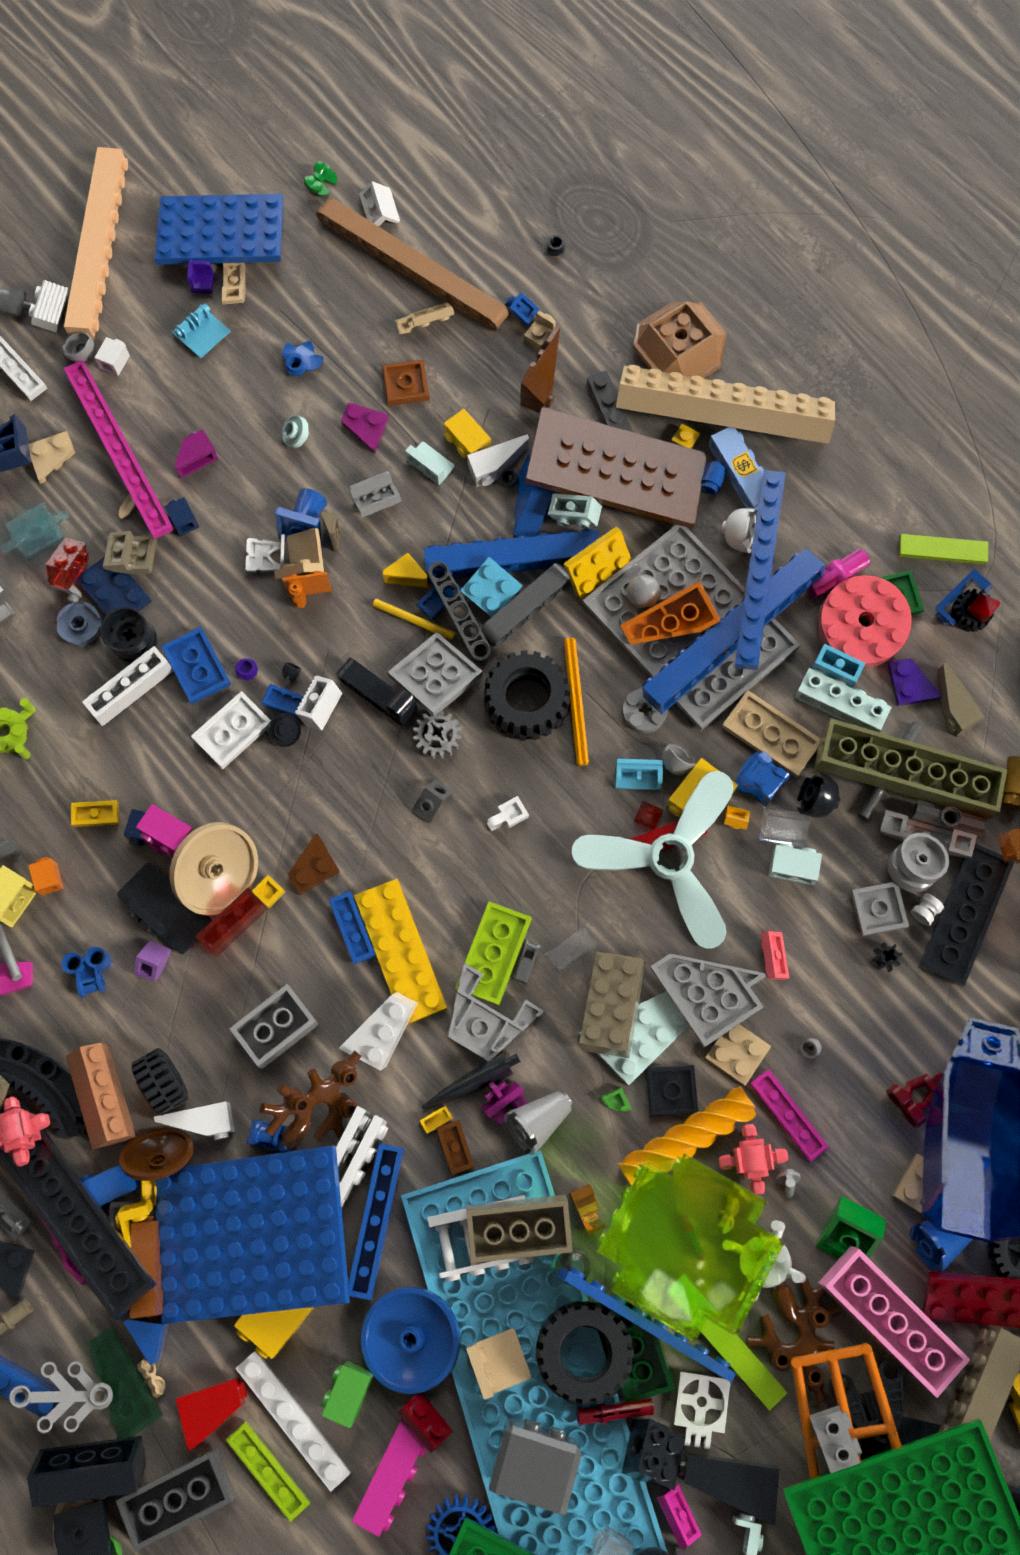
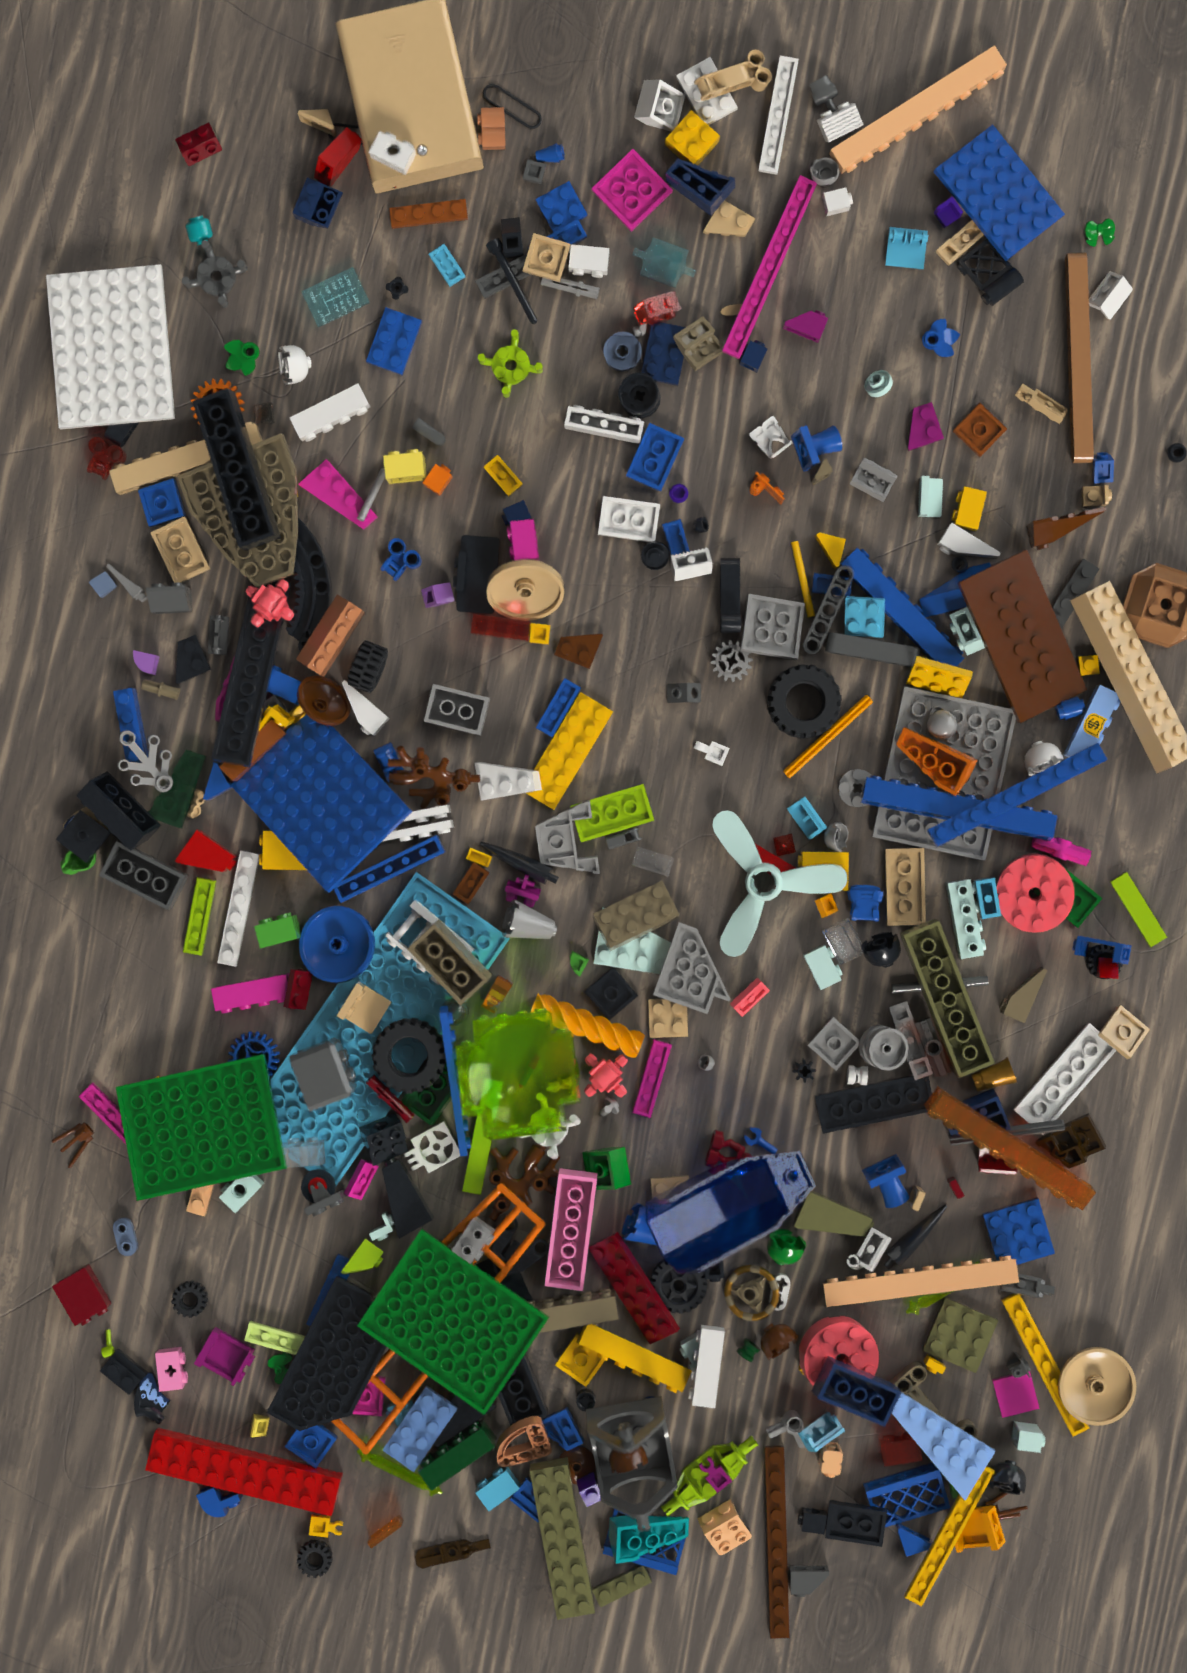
camera: 50 degrees right, 15 degrees up
(295, 276) = (997, 286): none -> black piece
(304, 554) = (787, 469): tan bracket -> none
(910, 683) = (1015, 955): dark purple wing -> none
(929, 1054) = (760, 1141): none -> blue bar

